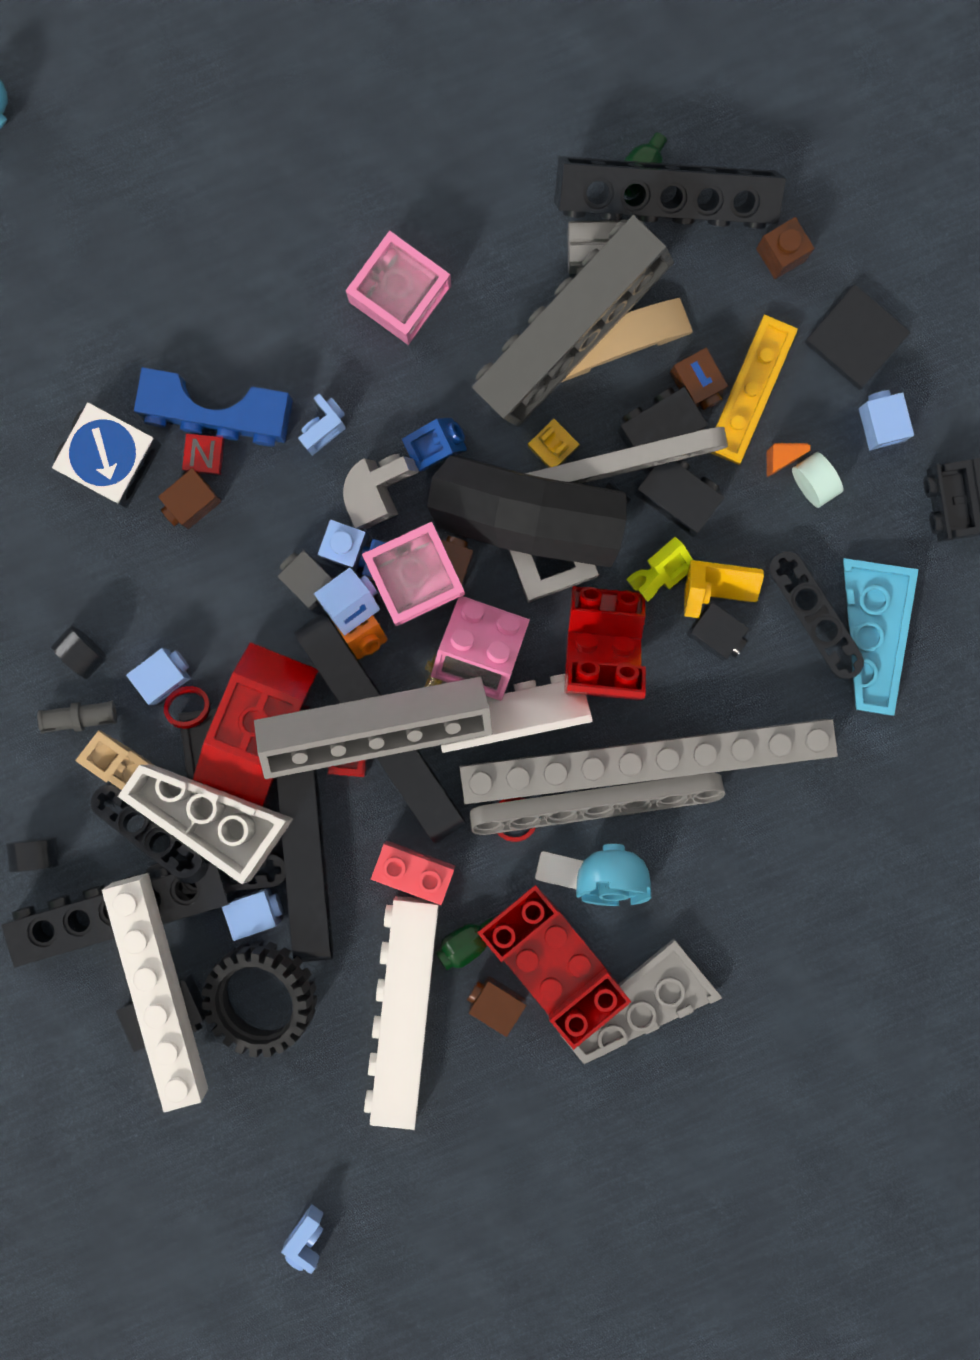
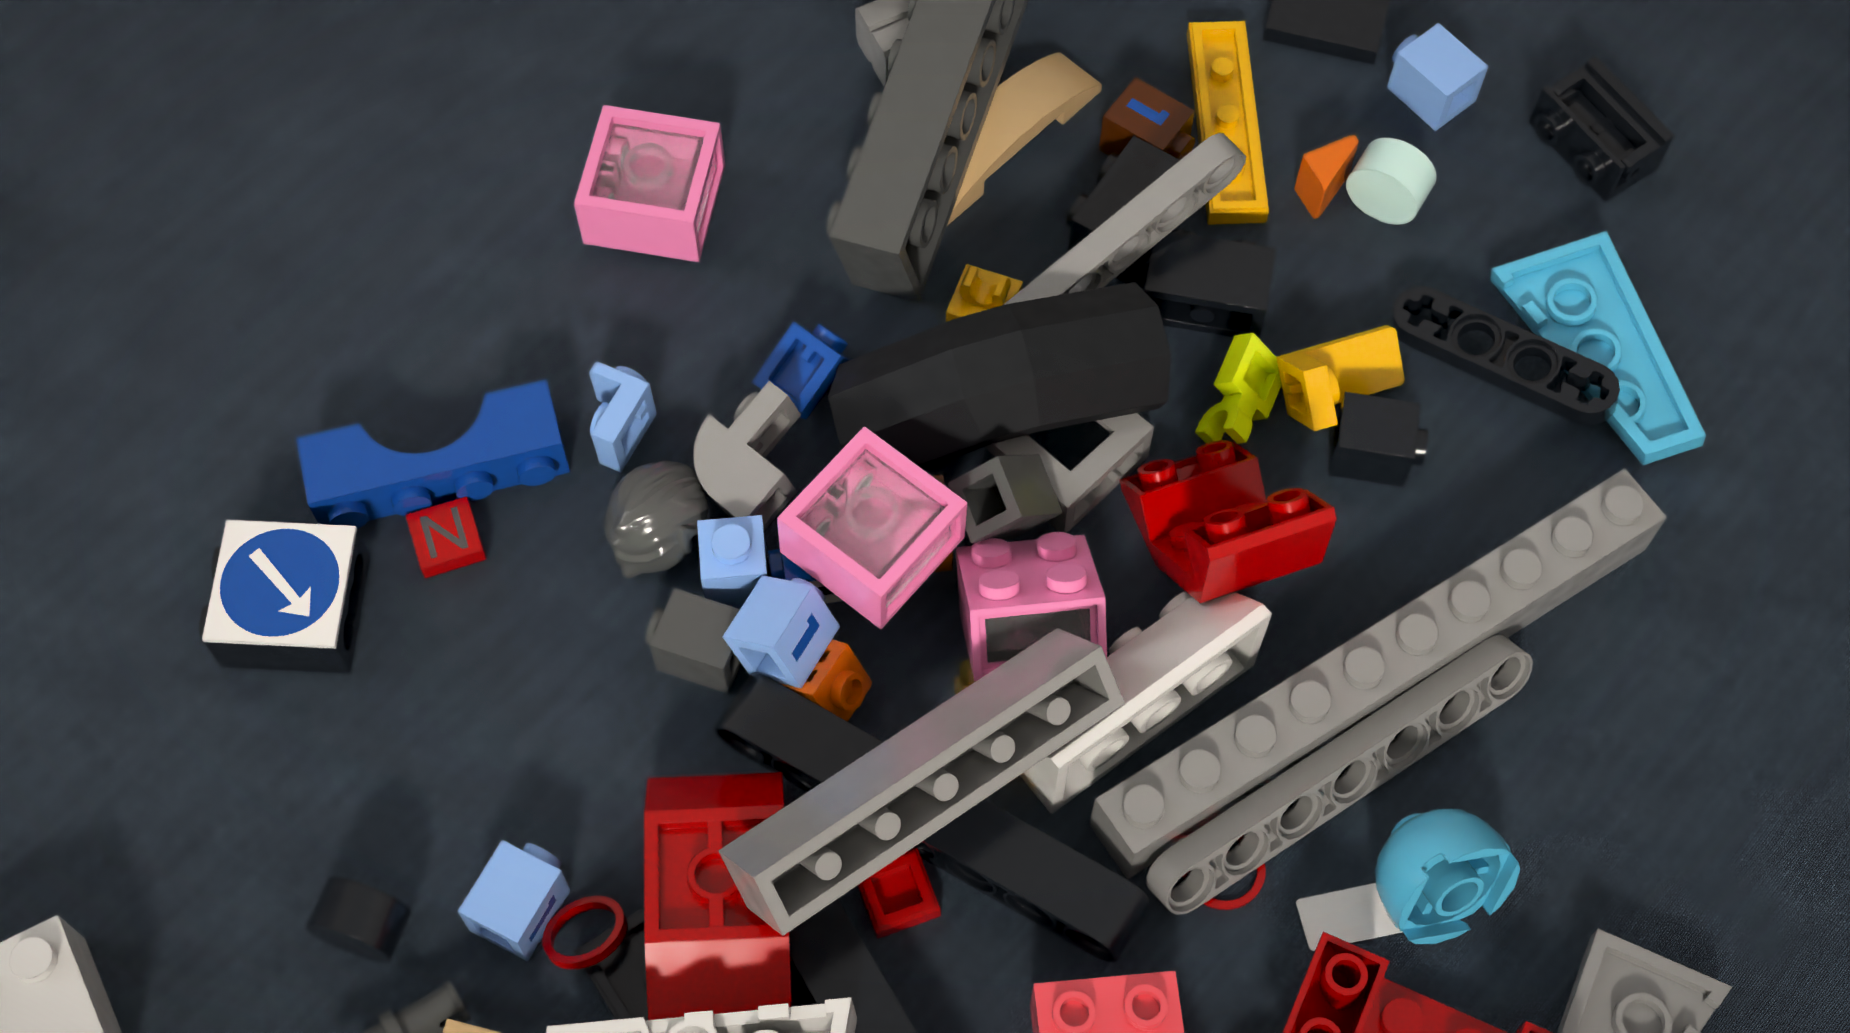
camera: 30 degrees left, 25 degrees down
(188, 500) = (451, 605): reddish brown brick -> none
(314, 497) = (654, 517): none -> dark grey hair
(494, 585) = (1006, 497): none -> dark grey brick

